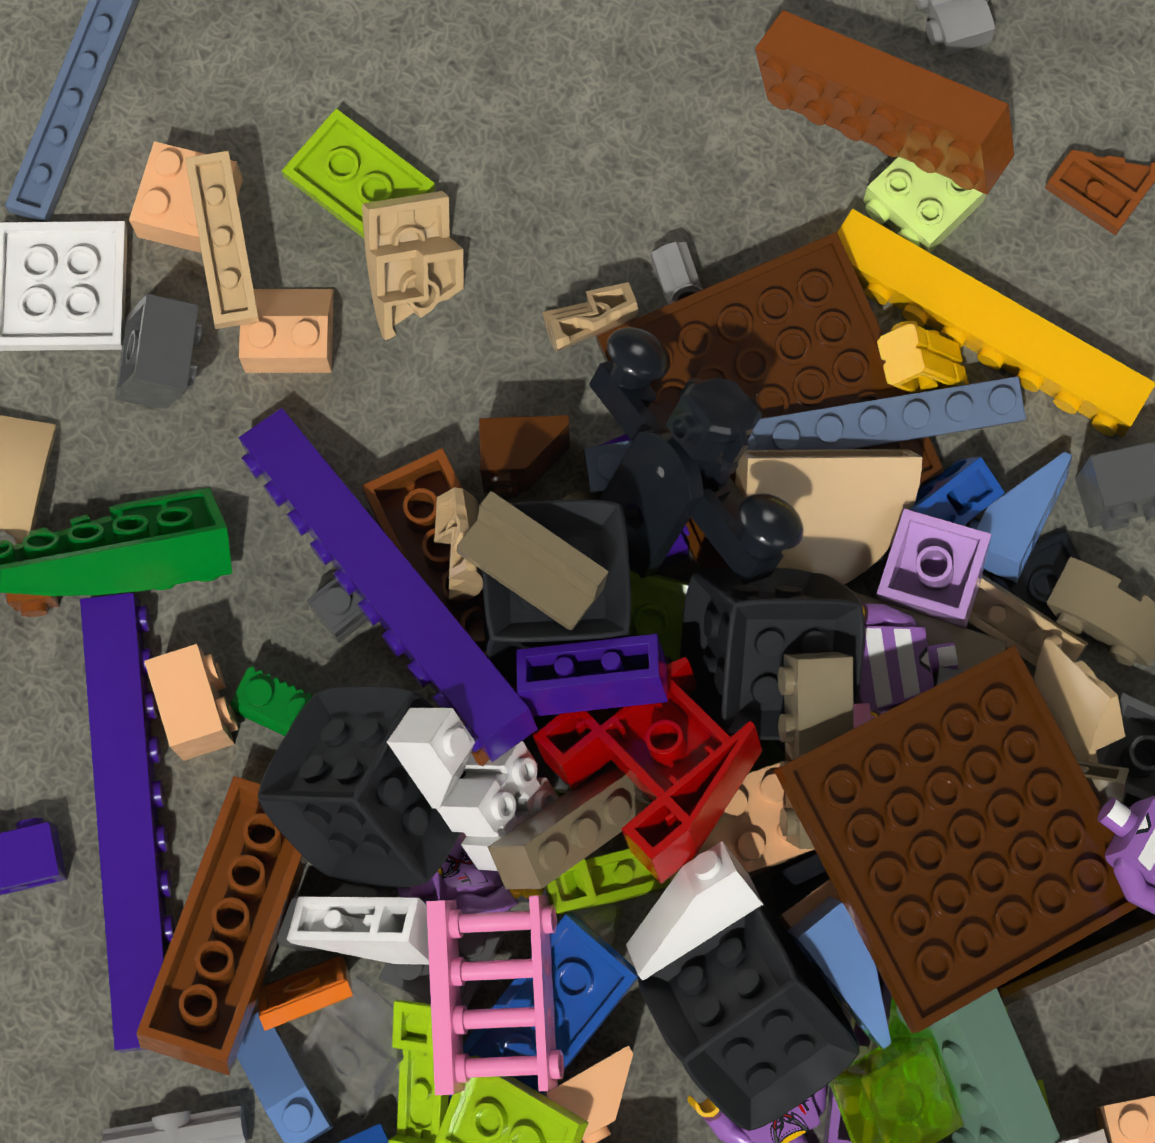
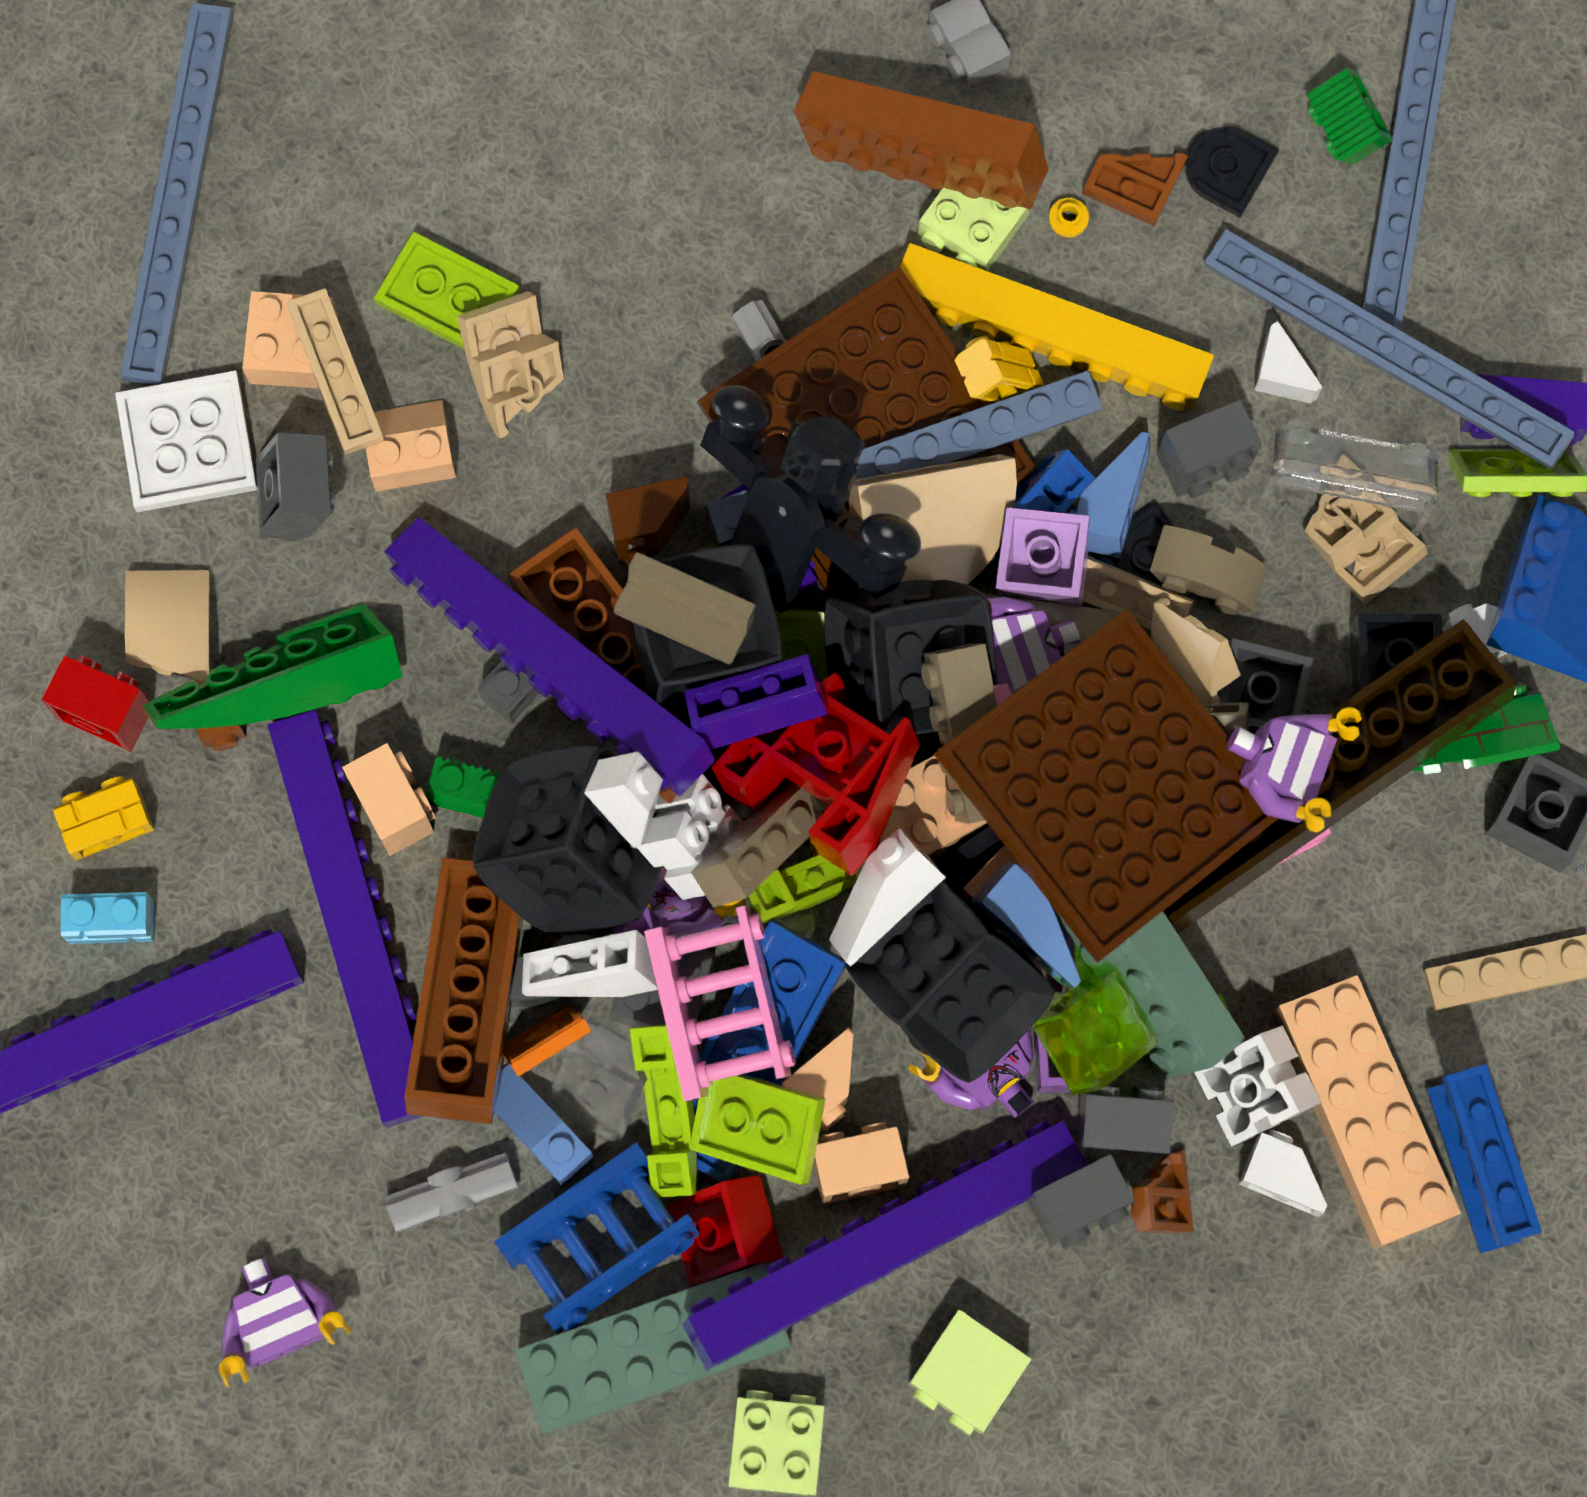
camera: 15 degrees left, 0 degrees up
(455, 516) = (603, 588): tan slope -> none
(604, 311) = (699, 377): tan slope -> none
(1021, 221) = (1068, 228): none -> yellow plate

